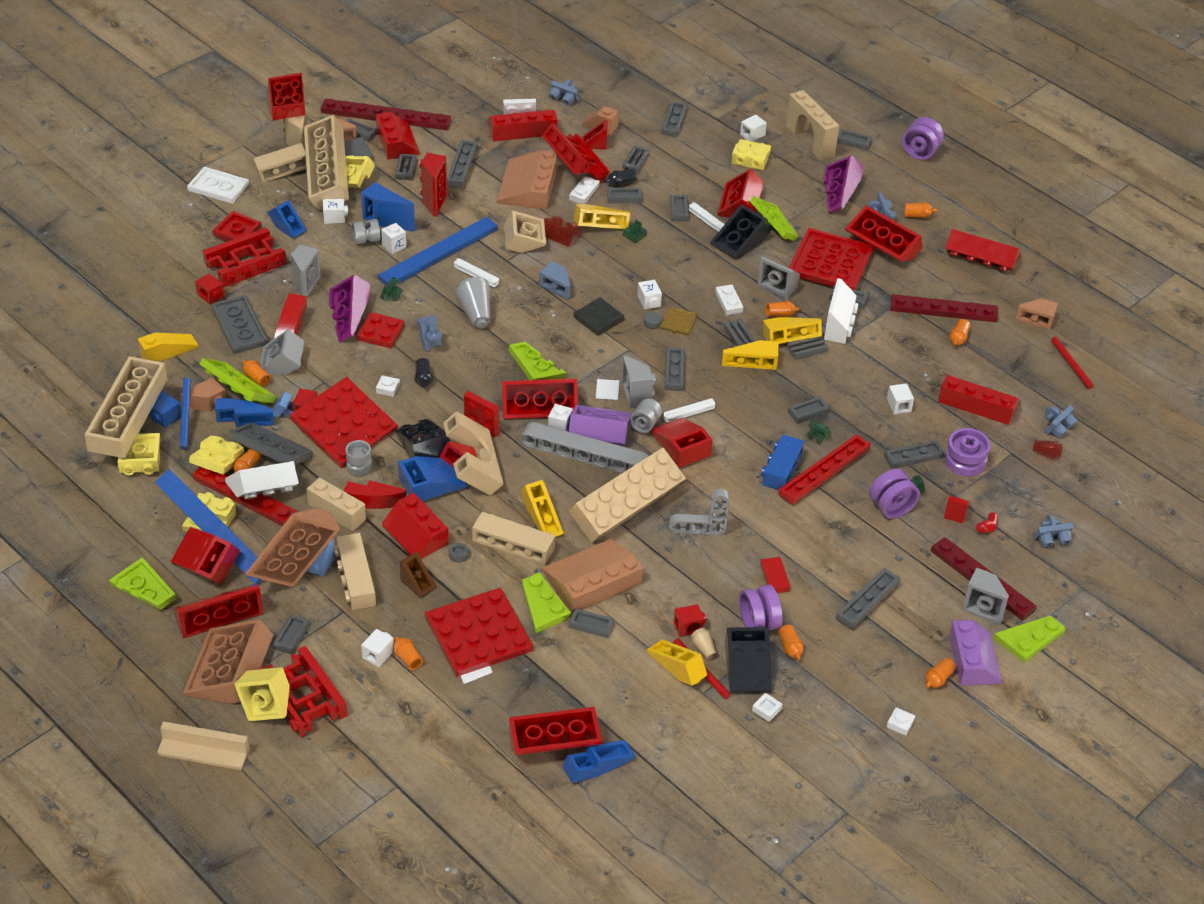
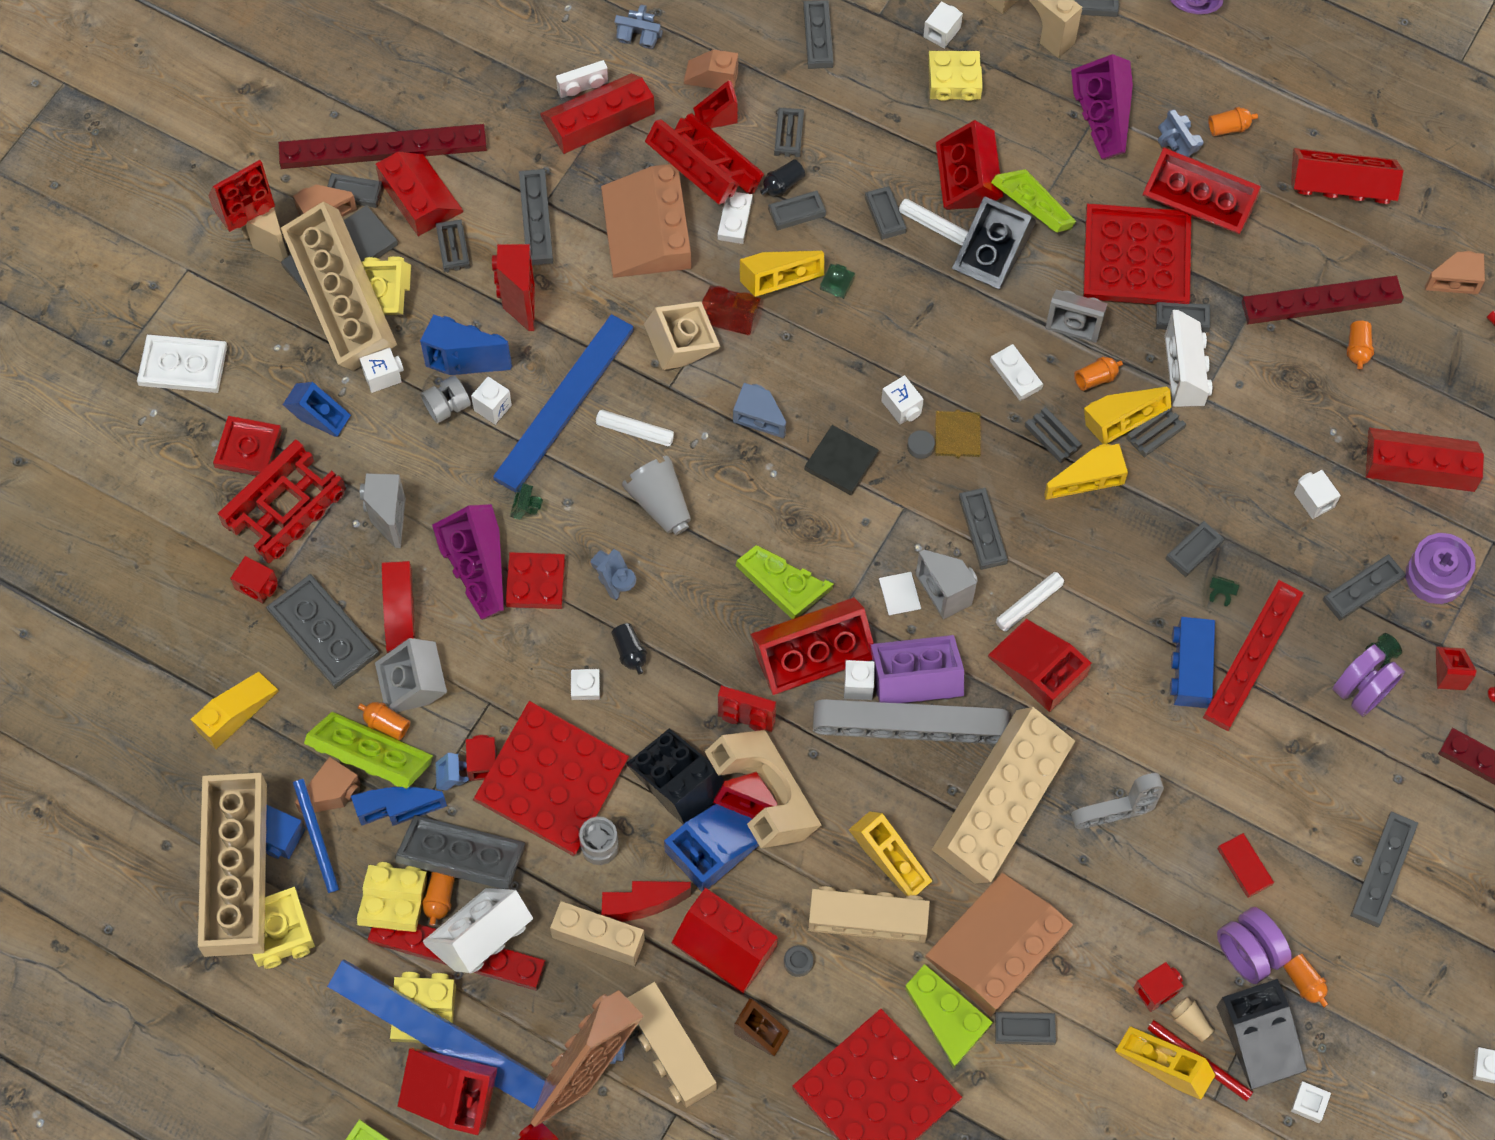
camera: 15 degrees left, 20 degrees up
(281, 162) = (265, 297): tan brick -> none
(646, 415) = (977, 636): light grey wheel -> none

